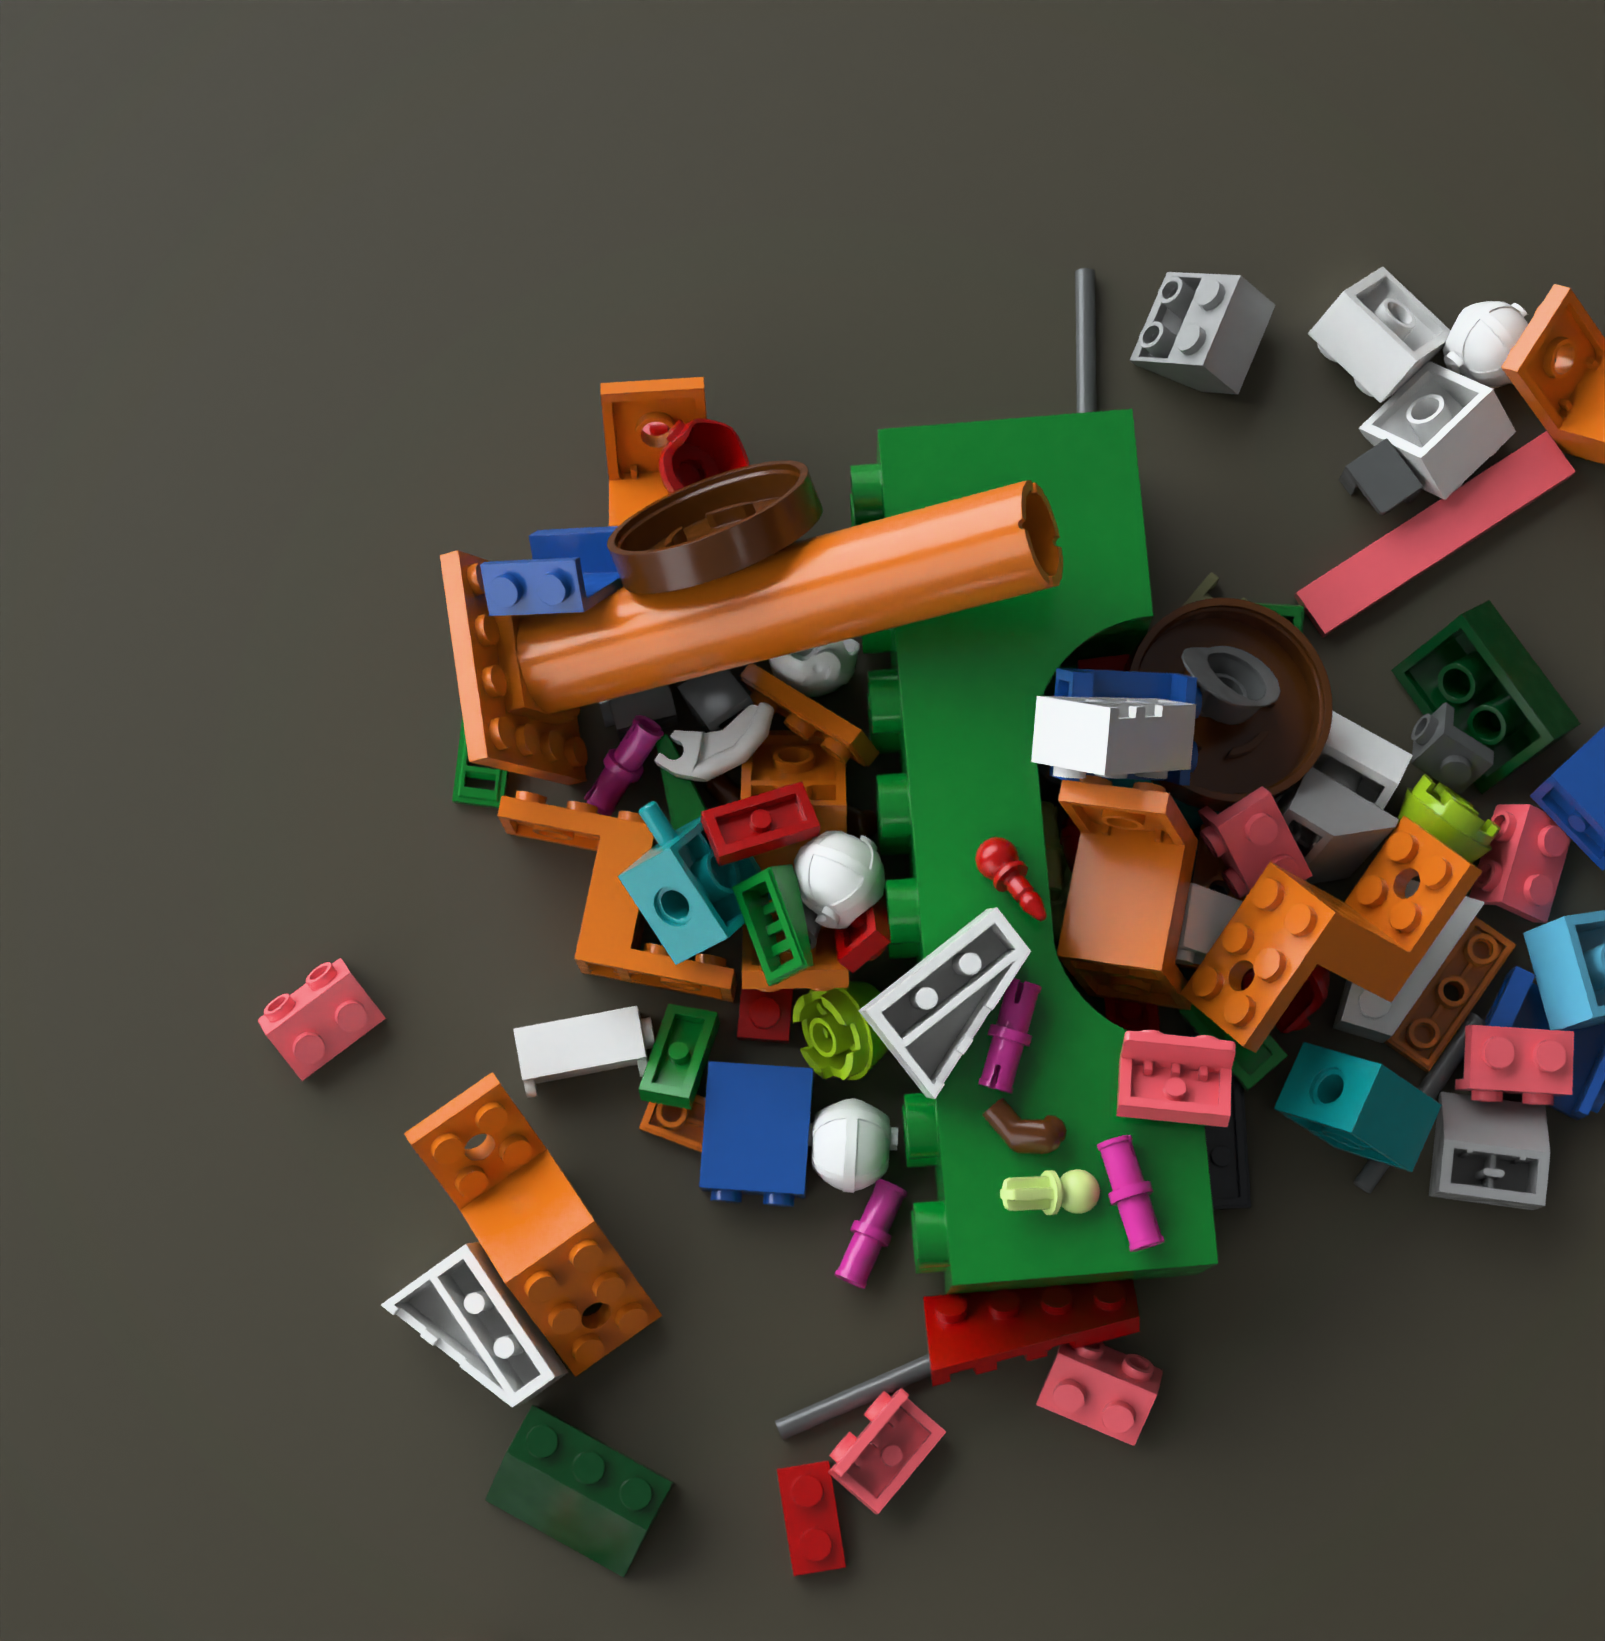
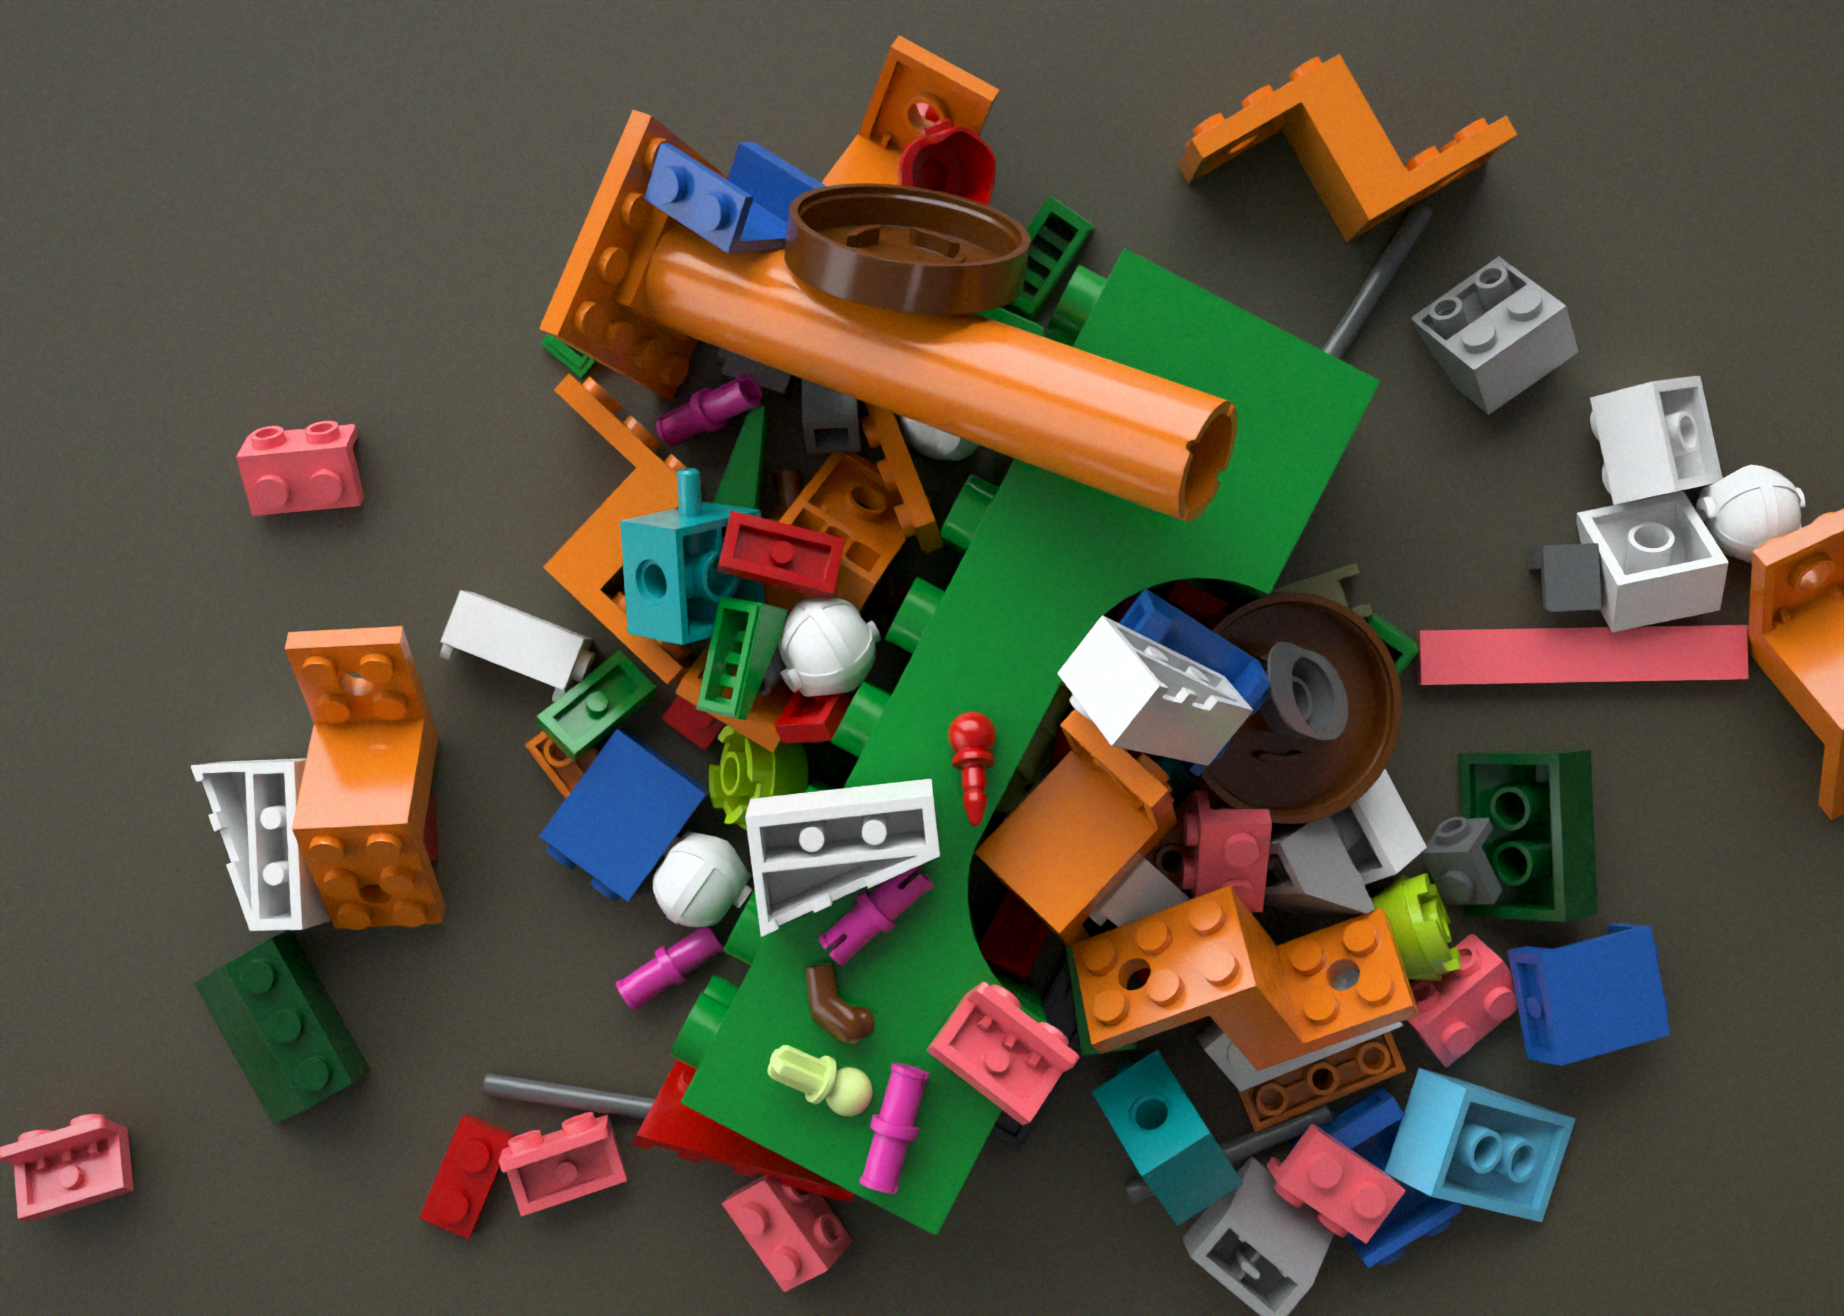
camera: 25 degrees right, 10 degrees up
(719, 751) = (799, 454): white piece -> none
(826, 447) = (1071, 220): none -> green slope
(990, 263) = (1341, 146): none -> orange bracket

